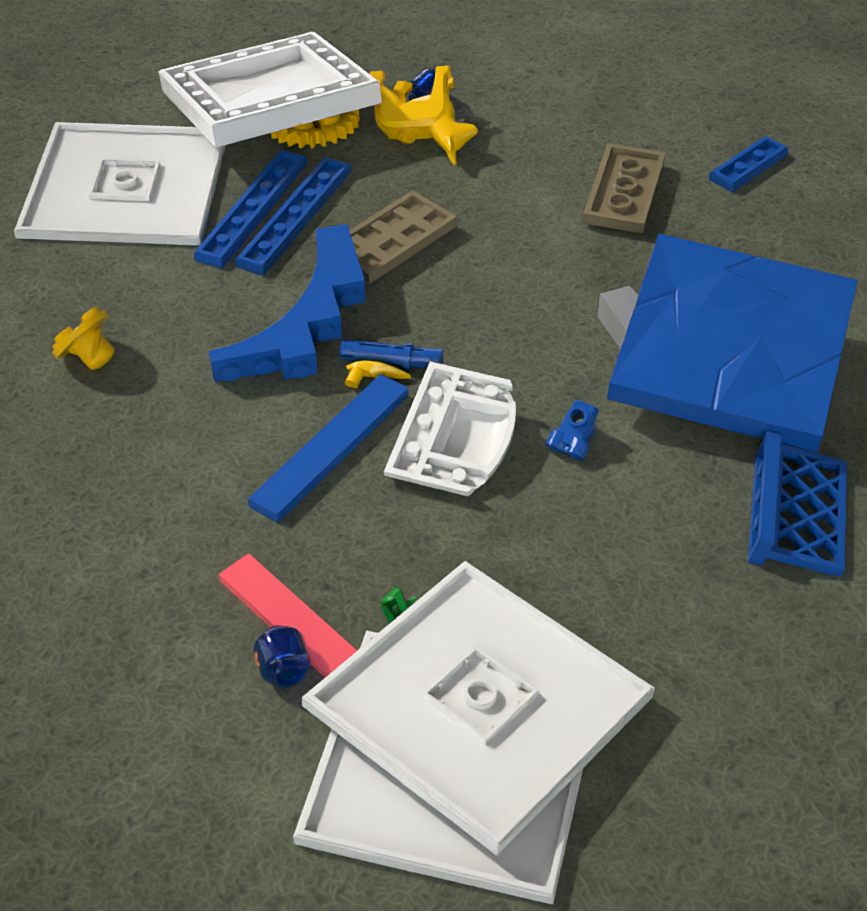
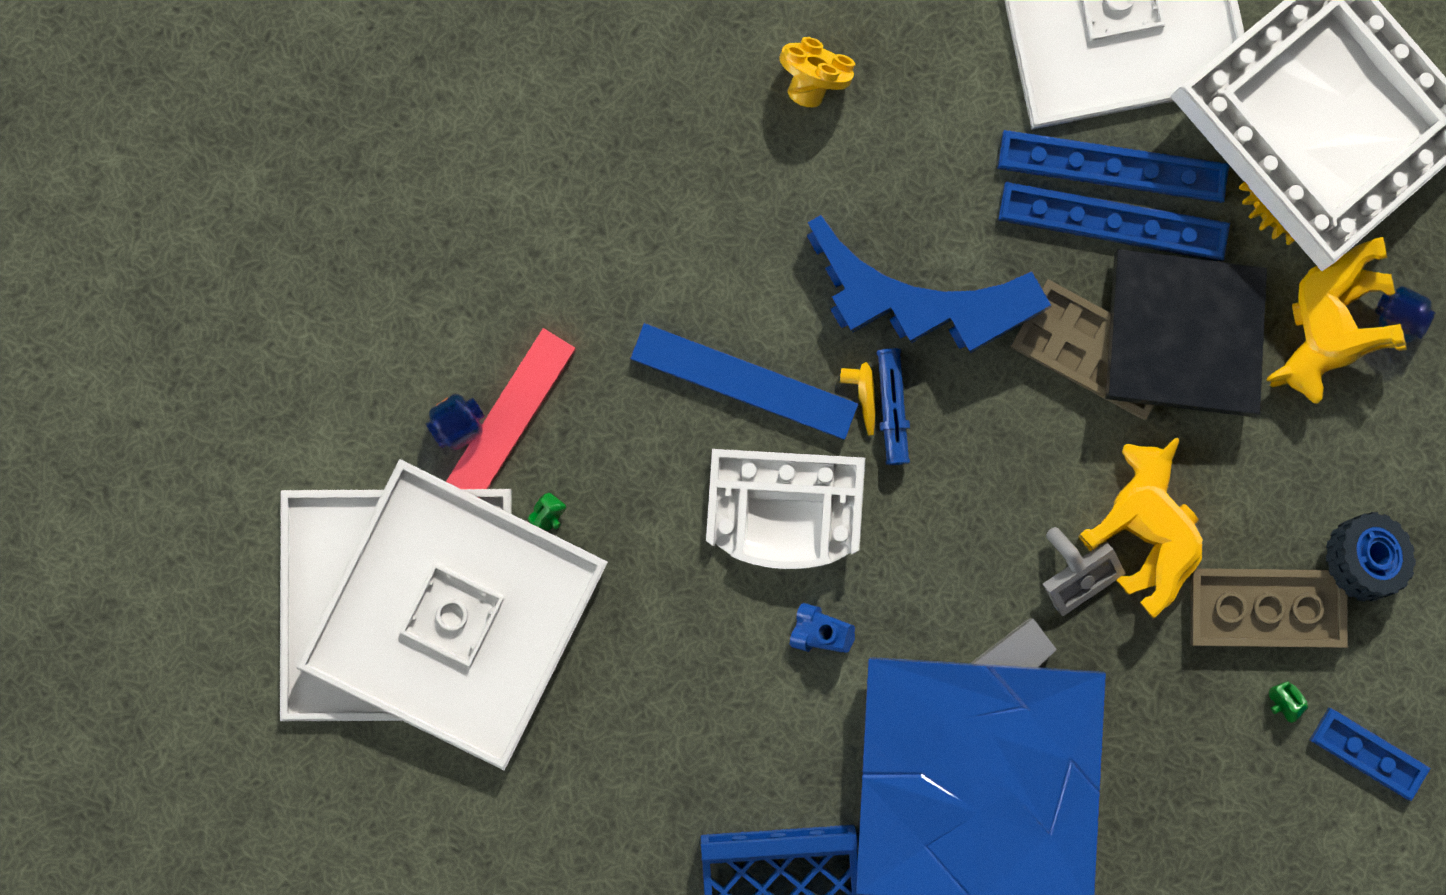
camera: 75 degrees right, 40 degrees up
(398, 184) = (1186, 333): none -> black tile
(540, 224) = (1156, 519): none -> yellow animal
(570, 268) = (1084, 574): none -> light grey plate
(600, 127) = (1370, 557): none -> black wheel
(700, 192) = (1288, 701): none -> green piece

